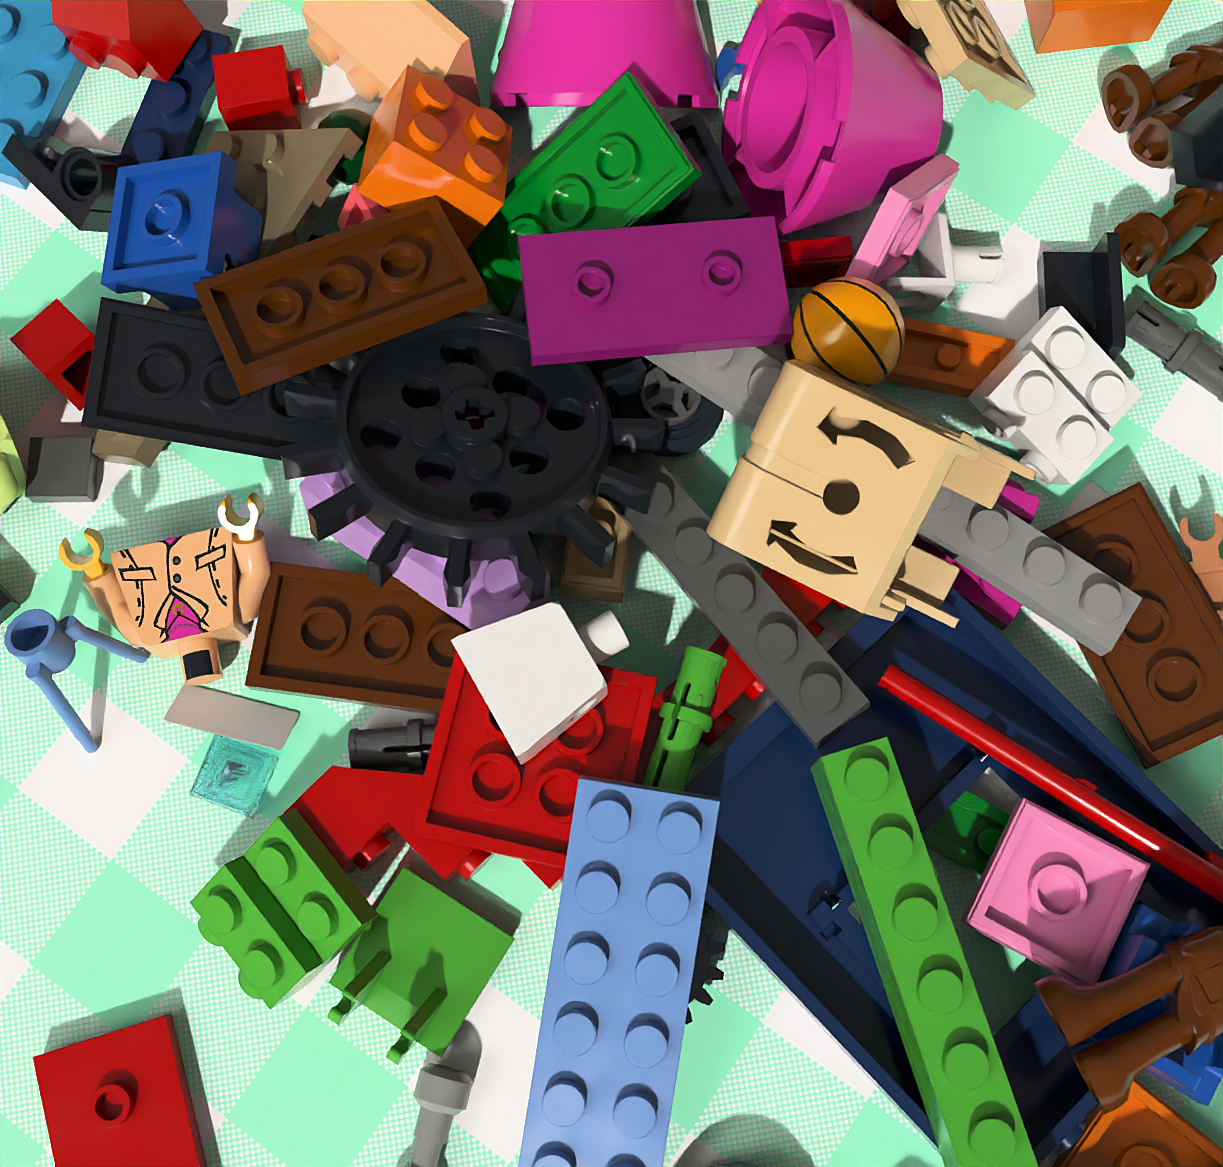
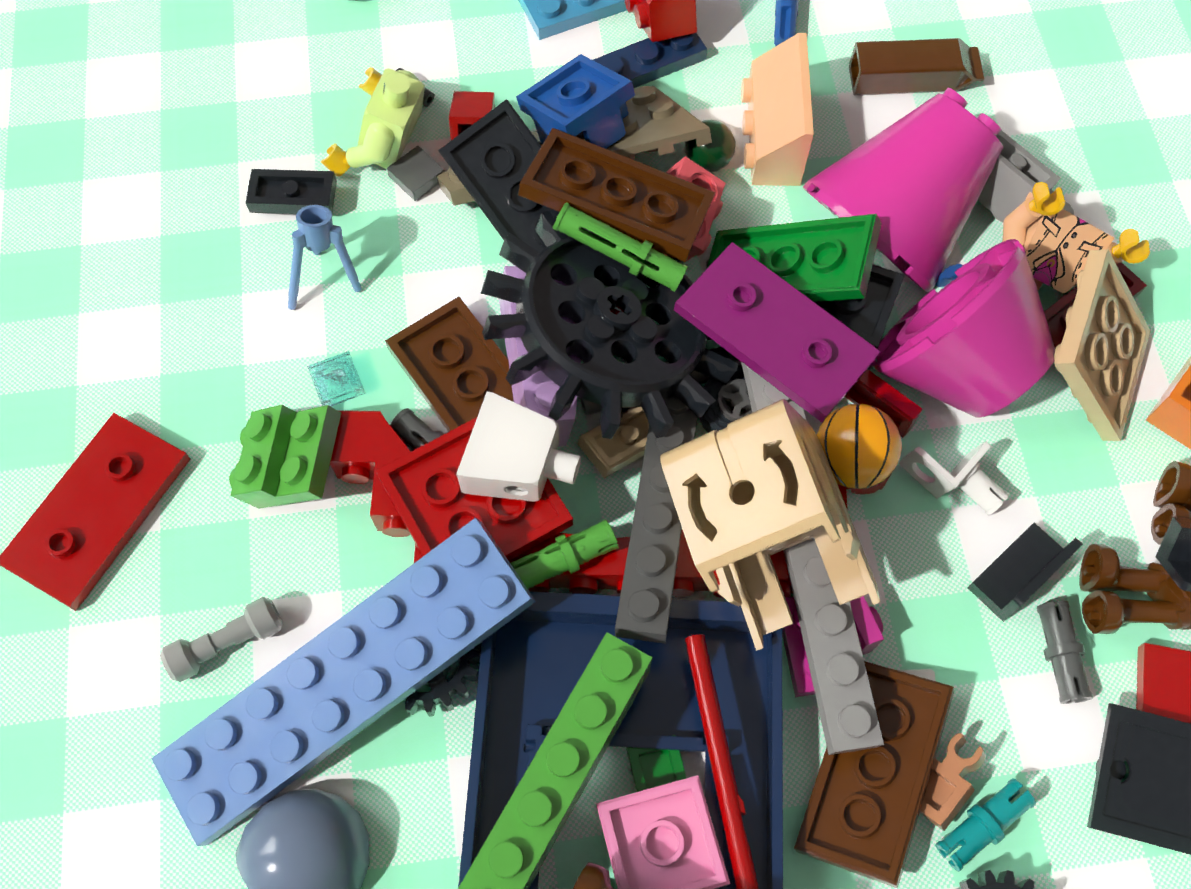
camera: 45 degrees right, 10 degrees down
(72, 179) = (559, 41): black plate -> none
(183, 590) = (406, 273): light nougat torso -> none
(232, 717) = (365, 352): white sticker -> none
(259, 89) = (693, 83): red brick -> none
(419, 965) = (316, 550): bright green plate -> none
(436, 343) = (571, 222): none -> bright green pin
(438, 145) = (746, 179): orange brick -> none
(903, 220) = (954, 423): bright pink tile -> none
(947, 358) = (914, 526): orange plate -> none
(1055, 399) = (953, 600): white plate -> none

